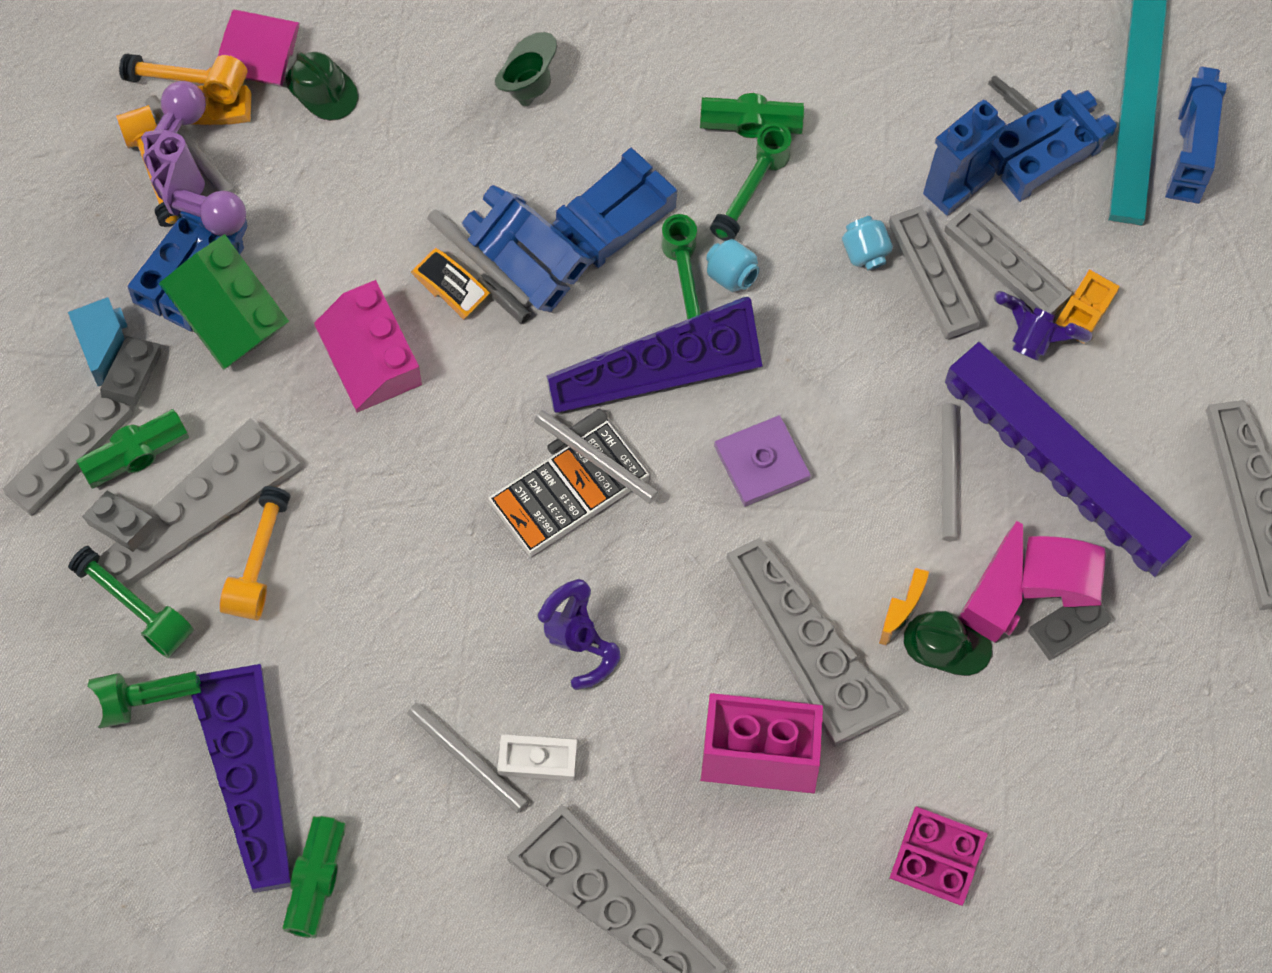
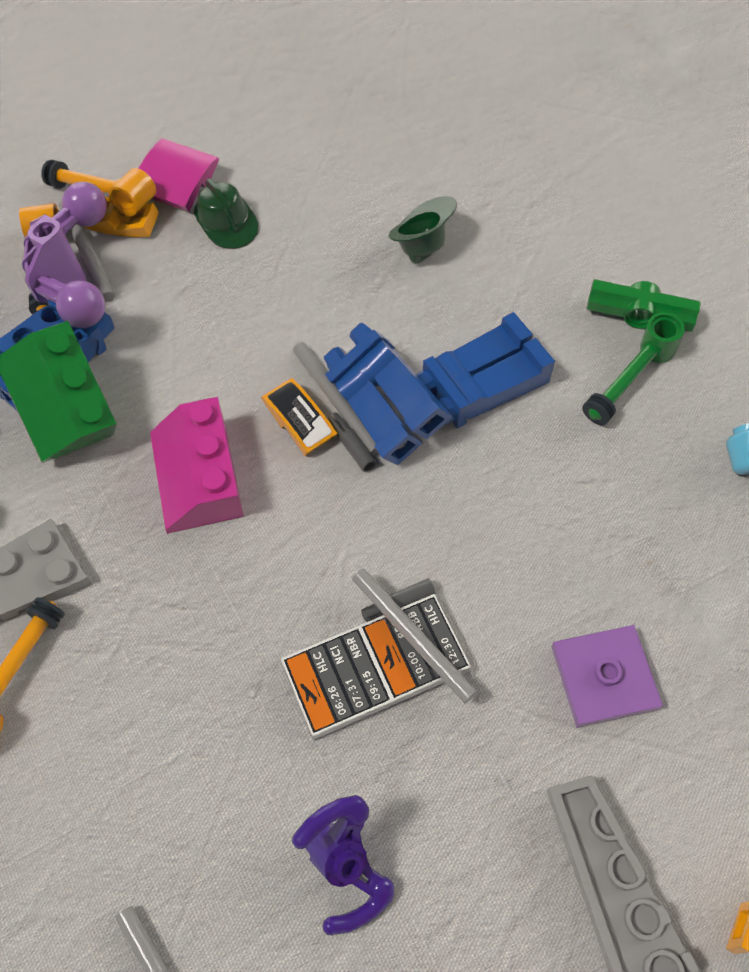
camera: 15 degrees right, 5 degrees down
(681, 252) = (550, 511): green piece -> none
(684, 353) = (536, 533): dark purple wing -> none
(732, 265) = (602, 448): medium azure head -> none

